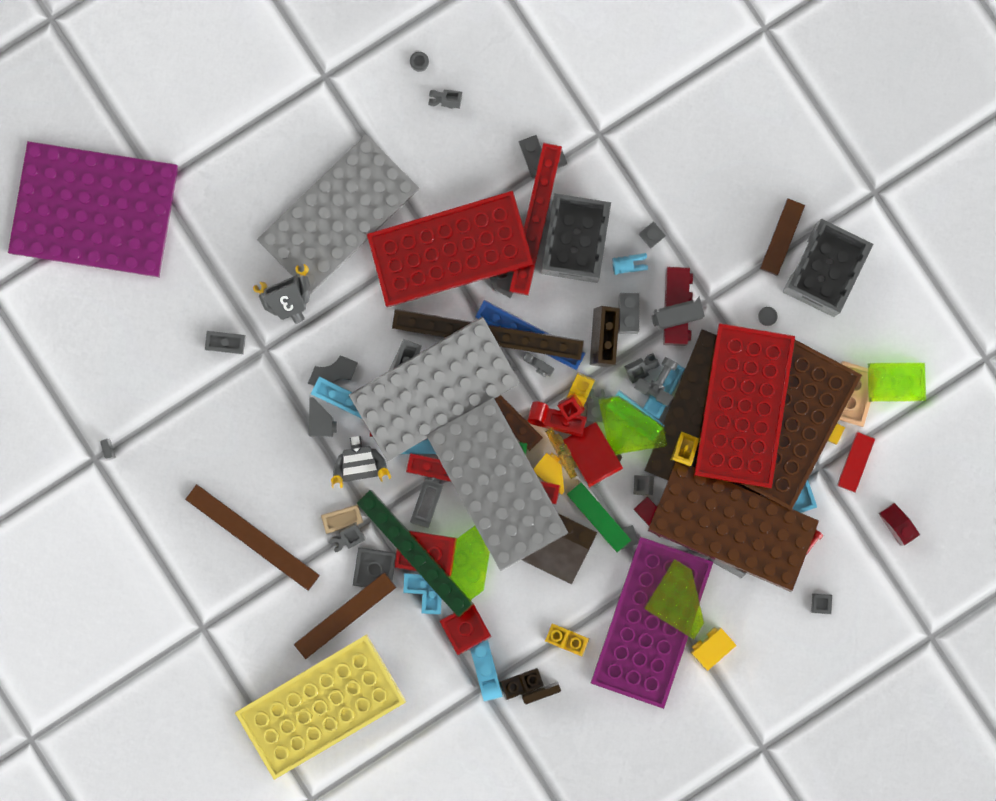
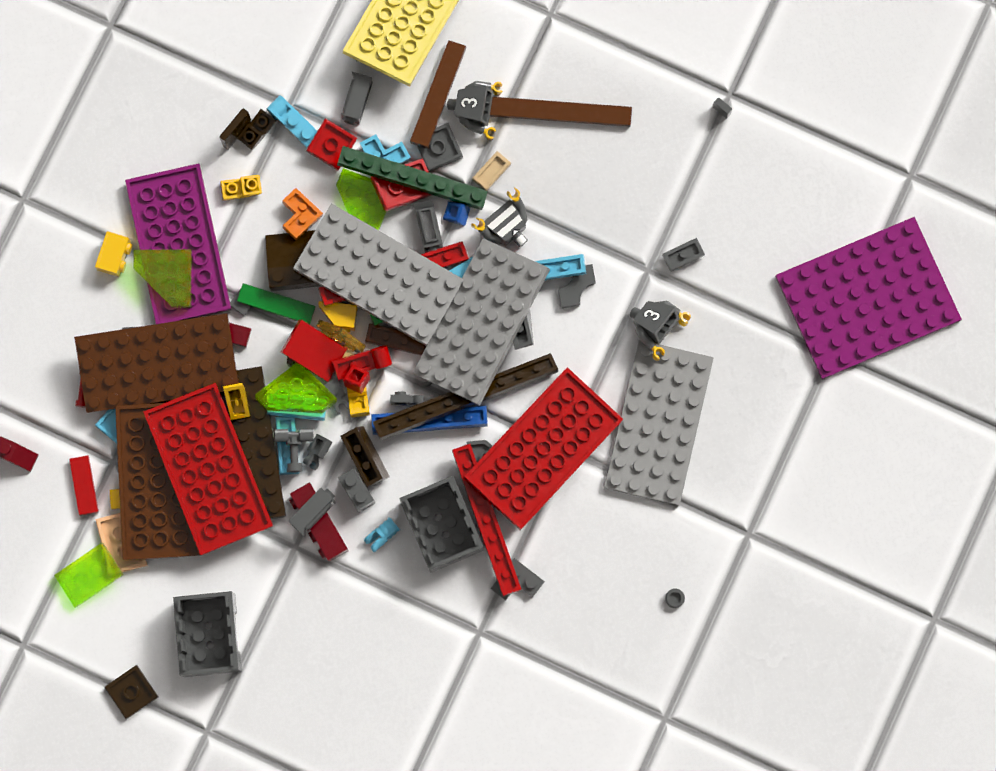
camera: 150 degrees right, 5 degrees down
(320, 421) = (561, 239): dark grey slope -> none
(320, 584) = (474, 106): none -> dark grey torso
(349, 536) = (476, 159): dark grey plate -> none
(395, 501) = (456, 213): none -> blue slope
(418, 656) = (356, 98): none -> dark grey window
(447, 98) = (628, 579): dark grey plate -> none
(525, 582) = (304, 214): none -> orange plate
(643, 485) = (254, 353): dark grey plate -> none
(652, 235) = (378, 572): dark grey plate -> none
(767, 316) = (235, 564): dark grey piece -> none
(782, 237) = (264, 641): reddish brown tile -> none
(821, 603) = (43, 348): dark grey tile -> none
(917, 263) = (131, 691): none -> dark brown tile

